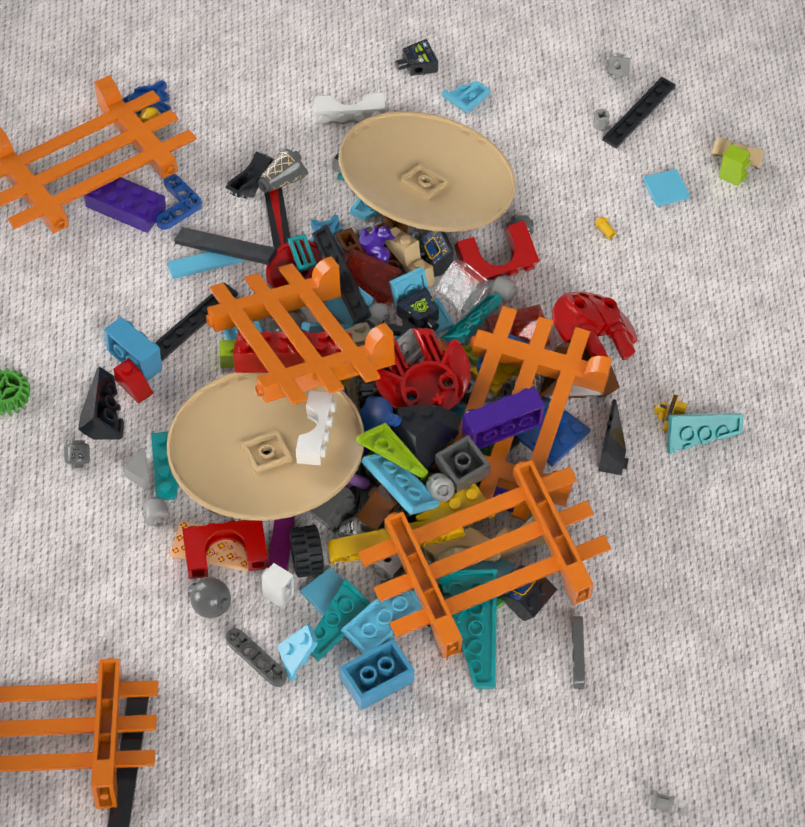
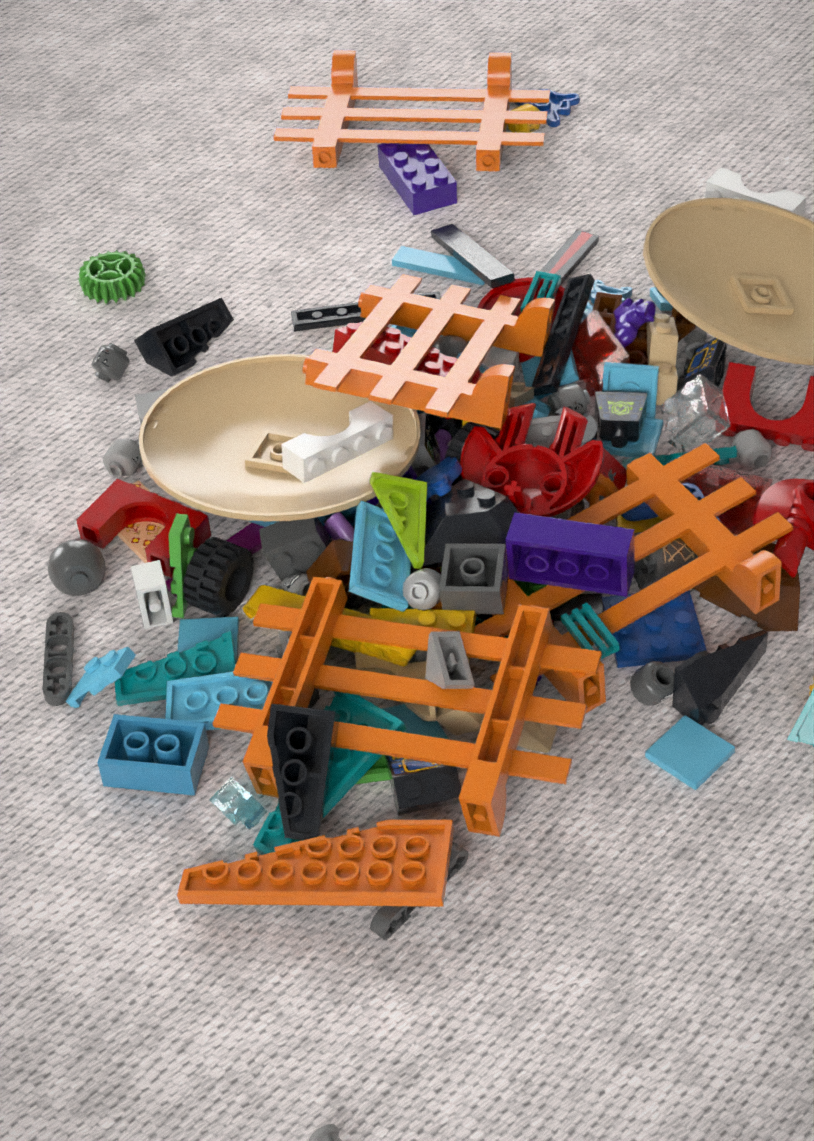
camera: 45 degrees right, 10 degrees down
(128, 343) = (269, 297): dark azure brick -> none
(132, 381) = (240, 328): red slope -> none
(183, 204) = (476, 208): blue beam -> none
(245, 183) = (562, 212): black arch -> none
(282, 171) = (607, 217): dark grey cone -> none
(284, 554) = (180, 552): none -> bright green wing
(449, 670) = (238, 804): none -> clear light blue brick
(474, 624) = (302, 760): none -> black wedge
(500, 523) = (447, 661): none -> light grey slope
(545, 455) = (588, 612): none -> teal tile
(545, 660) = (370, 867): none -> orange wing
(585, 464) = (652, 683): none -> dark grey head
(631, 491) = (690, 752): none -> medium azure tile

